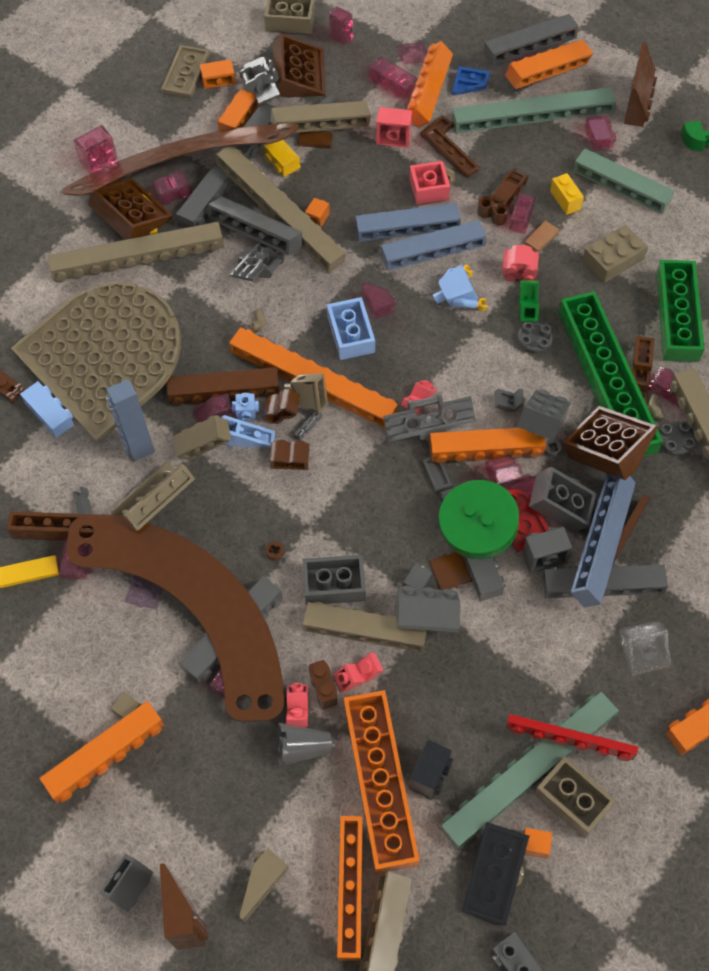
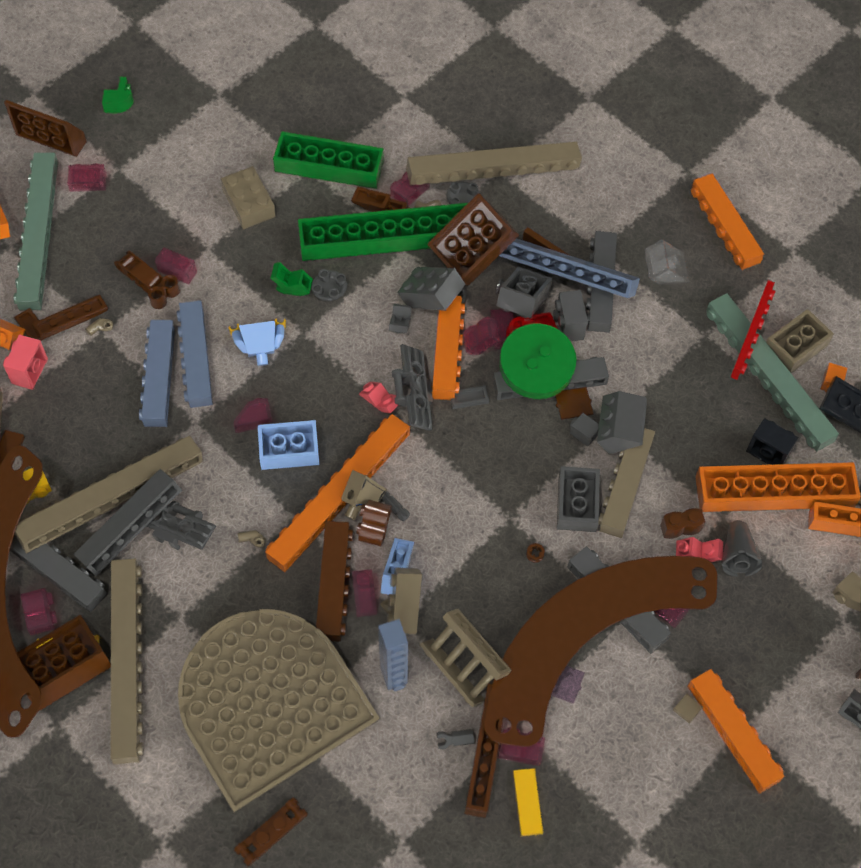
camera: 85 degrees left, 0 degrees up
(47, 409) = (328, 771): light blue brick -> none
(245, 406) = (365, 558): light blue brick -> none
(289, 455) = (429, 525): reddish brown brick -> none
(318, 211) = (119, 457): orange brick -> none
(356, 674) = (669, 492): coral slope -> none
(429, 182) = (112, 341): coral brick -> none
(520, 263) = (244, 277): coral brick -> none
(541, 236) = (206, 256): medium nougat tile -> none
(566, 193) = (161, 222): yellow brick -> none
(623, 181) = (156, 172): sand green brick -> none

